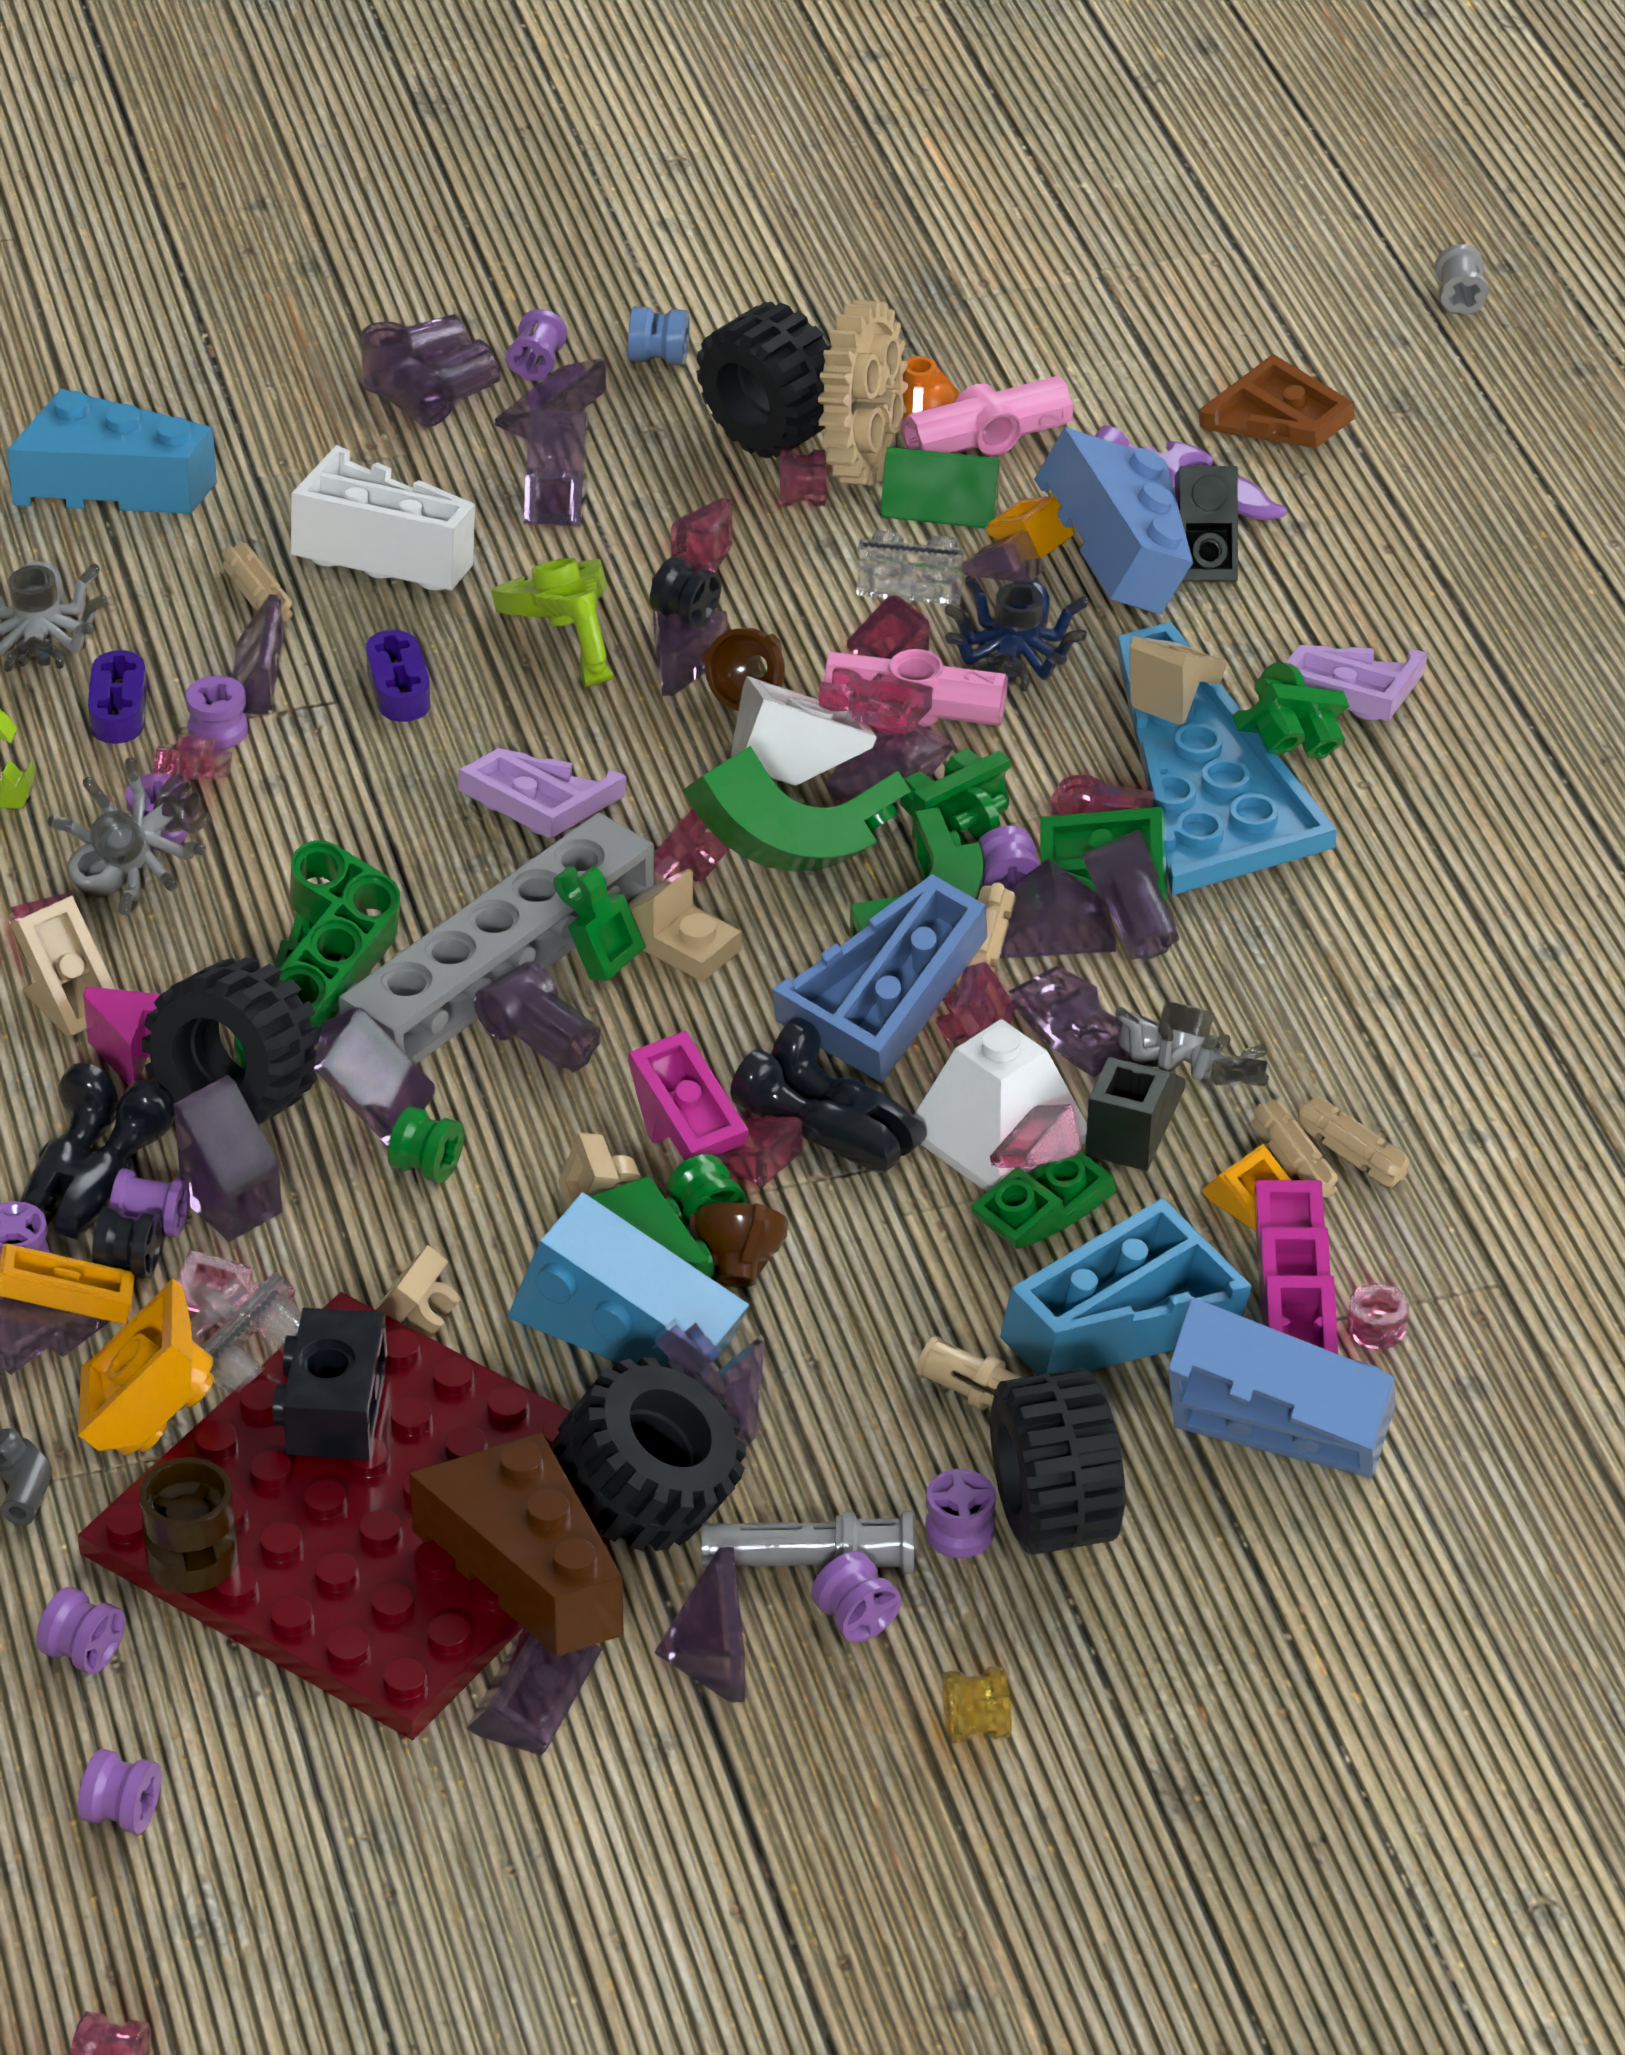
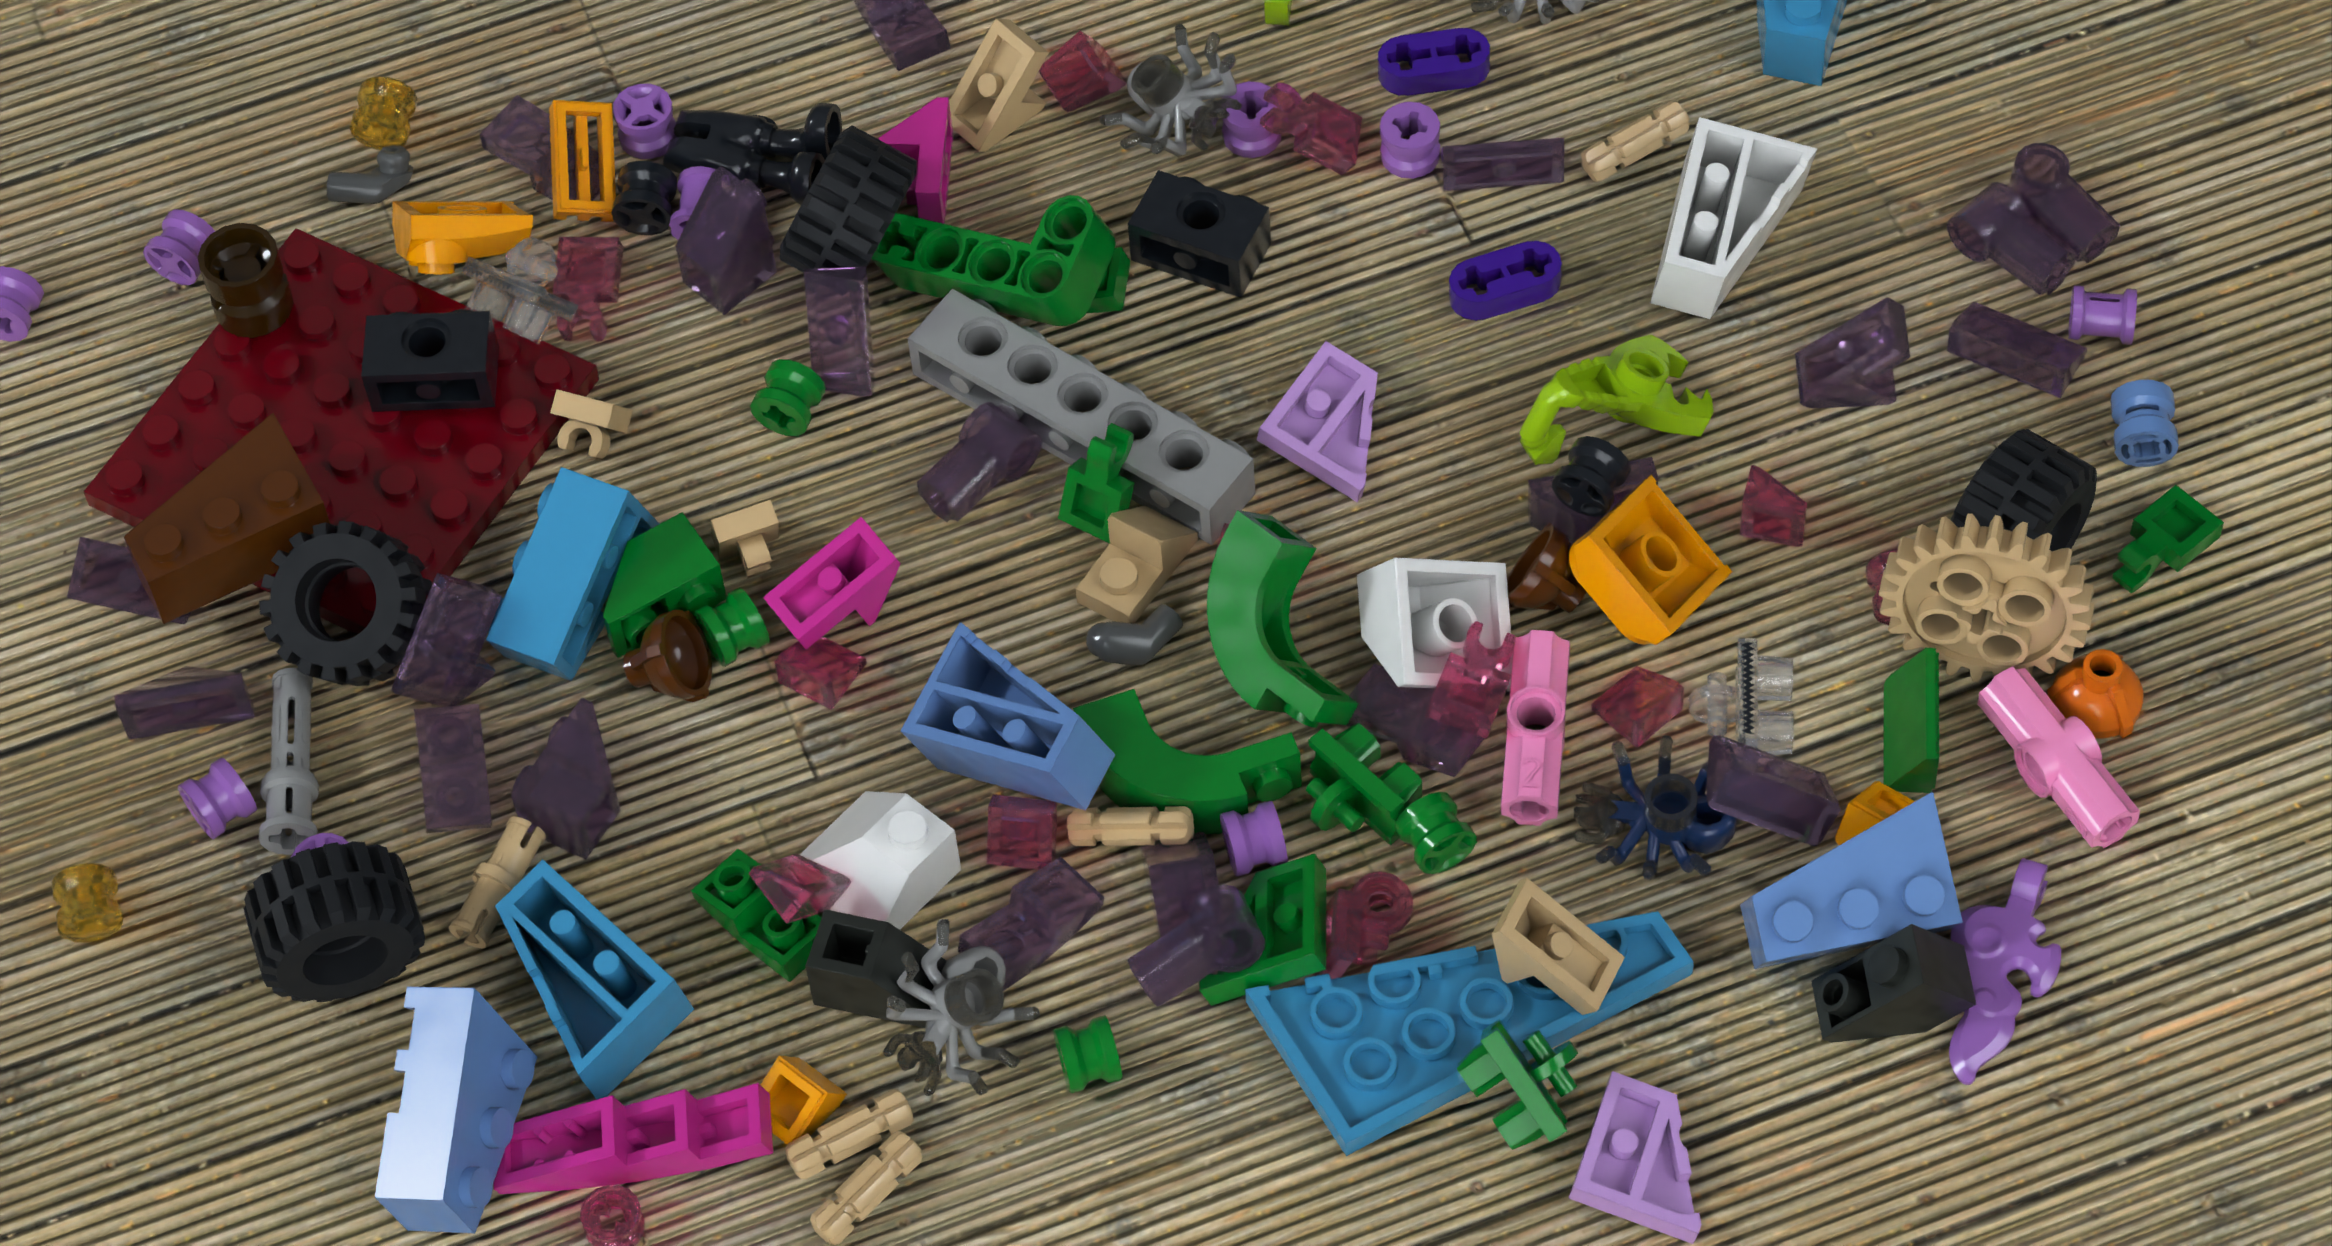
camera: 90 degrees right, 15 degrees up
(263, 854) = (1199, 233): none -> black brick
(768, 930) = (1133, 642): none -> dark grey arm
(780, 606) = (1646, 565): none -> light orange slope
(825, 1407) = (452, 768): none -> clear purple slope
(833, 1112) = (849, 716): black piece -> none
(875, 1314) = (570, 785): none -> clear purple slope
(1027, 751) = (1435, 833): none -> green wheel
(1229, 981) = (1088, 1054): none -> green wheel
(1278, 406) = (2161, 1059): dark orange wing -> none

